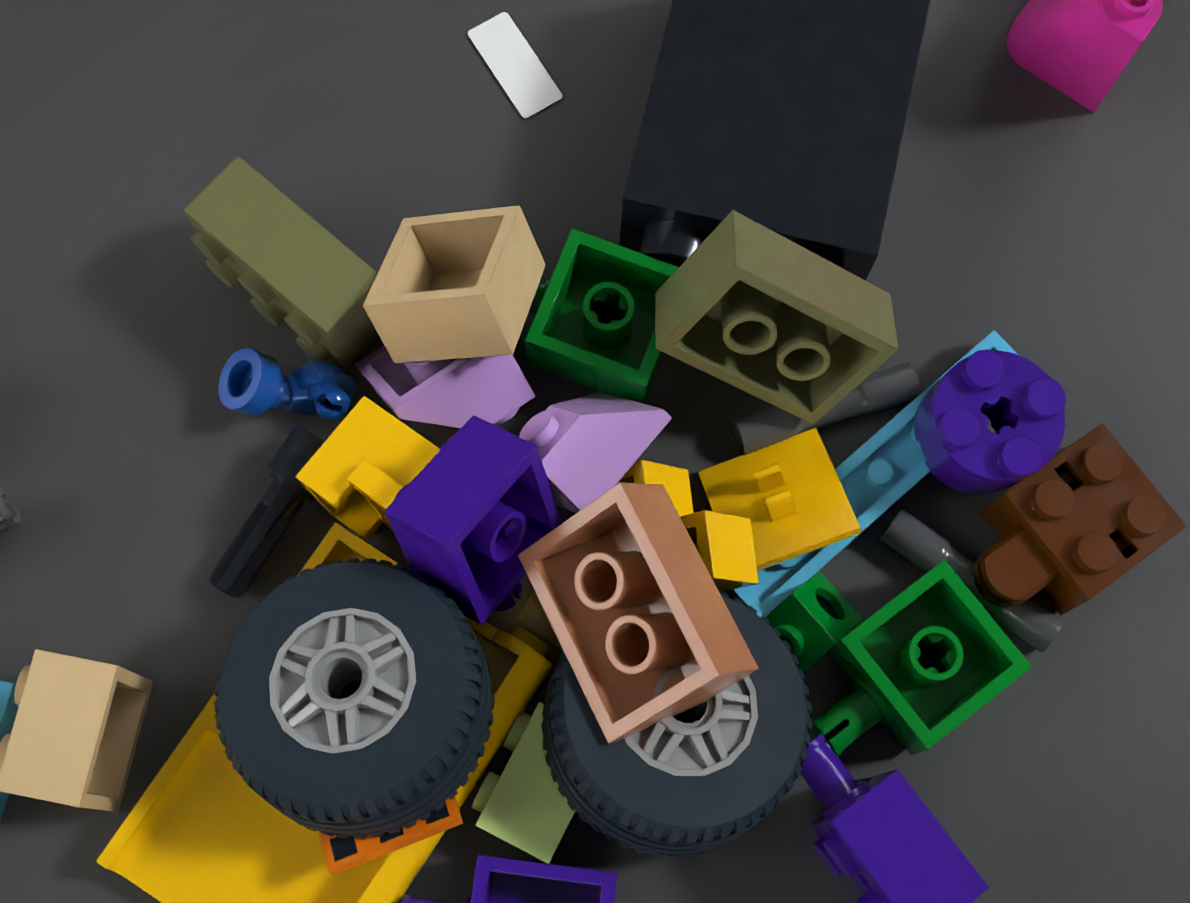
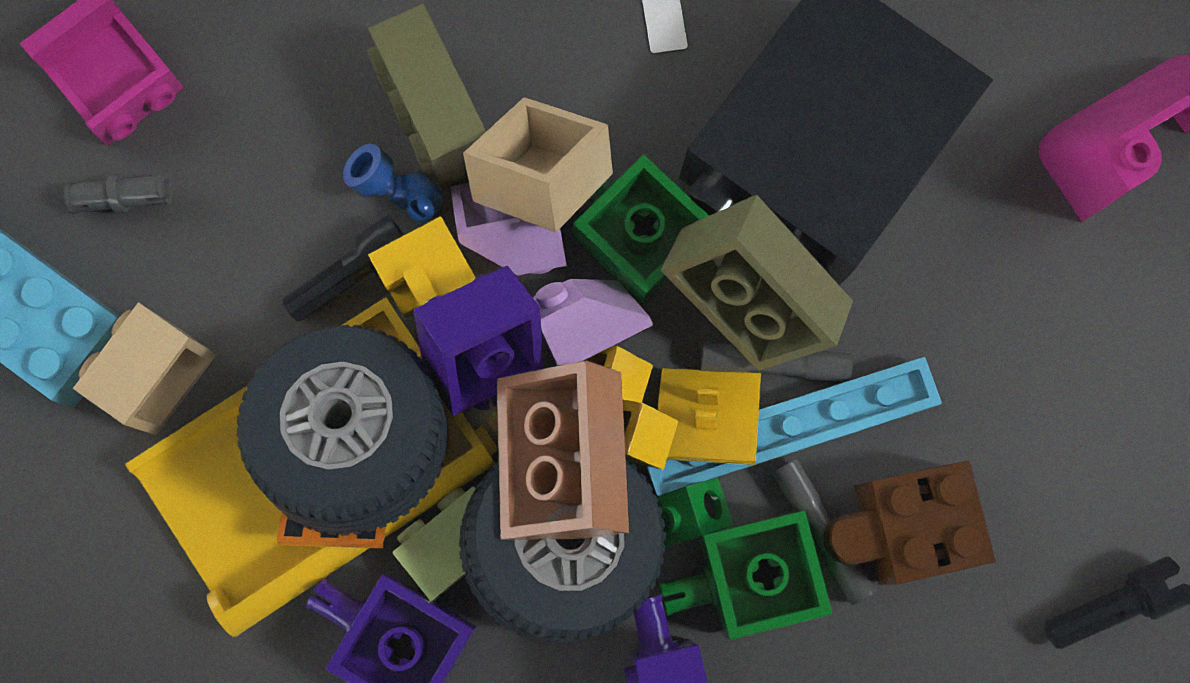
camera: 20 degrees right, 5 degrees up
(1022, 409) = (914, 425): dark purple brick -> none

